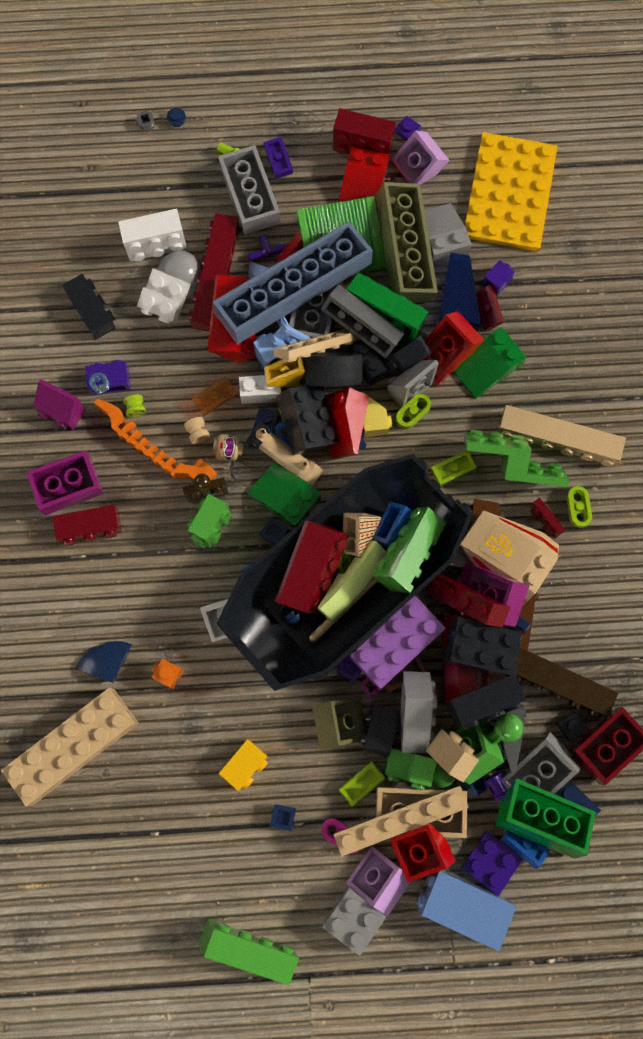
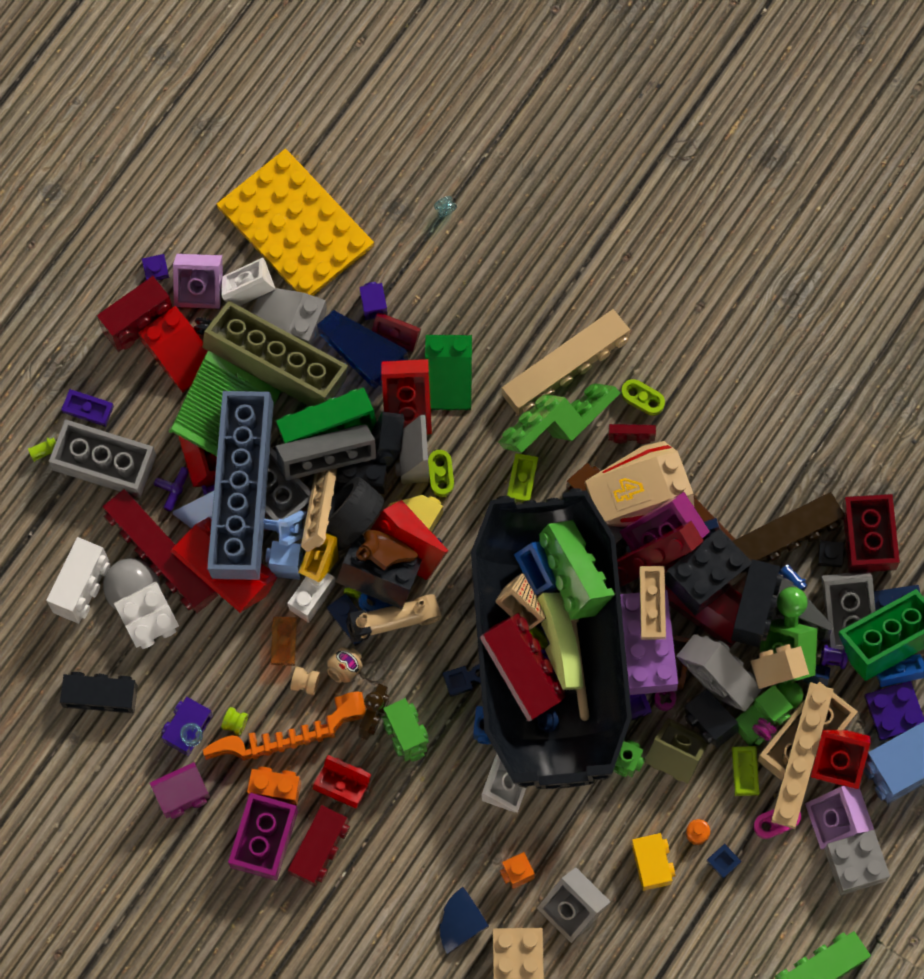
camera: 50 degrees left, 5 degrees down
(106, 464) = (277, 786): none -> orange brick
(143, 507) = (342, 781): none -> red bracket
(172, 731) = (573, 904): none -> light grey slope
(285, 495) = (430, 646): green slope -> none
(291, 782) = (698, 832): none -> orange piece
(306, 699) = (627, 767): none -> bright green brick
(321, 410) = (384, 549): none -> reddish brown arm
(399, 776) = (763, 729): none -> magenta bush
(425, 624) = (652, 603): none -> tan plate
(442, 190) = (247, 283): none -> white slope
(531, 711) = (791, 575): none -> blue pin
(604, 274) = (445, 206): none -> clear light blue bush

